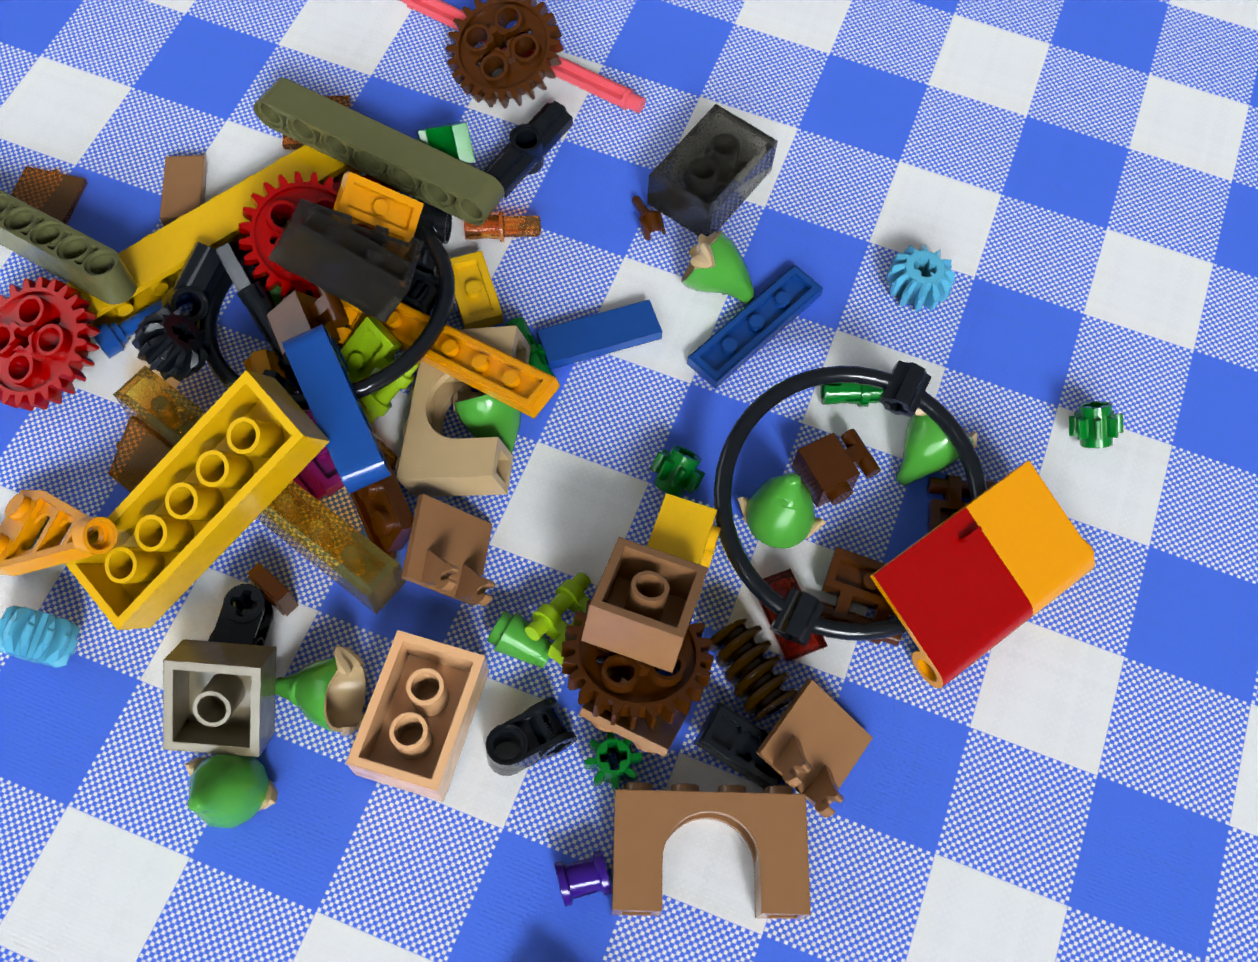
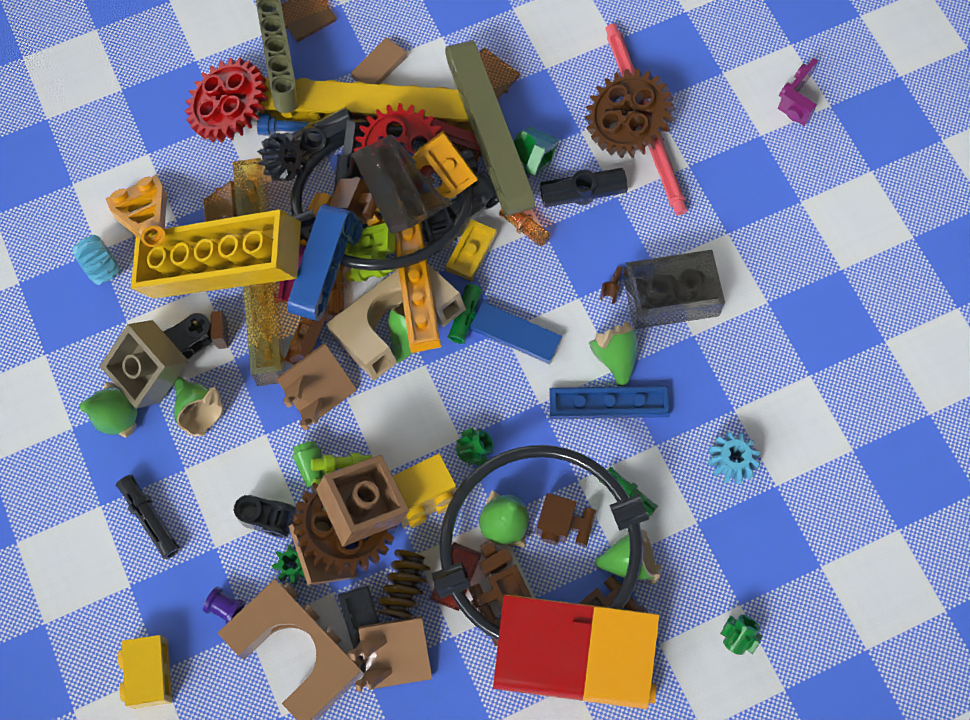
camera: 50 degrees right, 5 degrees up
(389, 866) = (142, 507): none -> black pin
(419, 715) = (223, 456): light nougat brick -> none
(810, 562) = (494, 560): none -> reddish brown tile

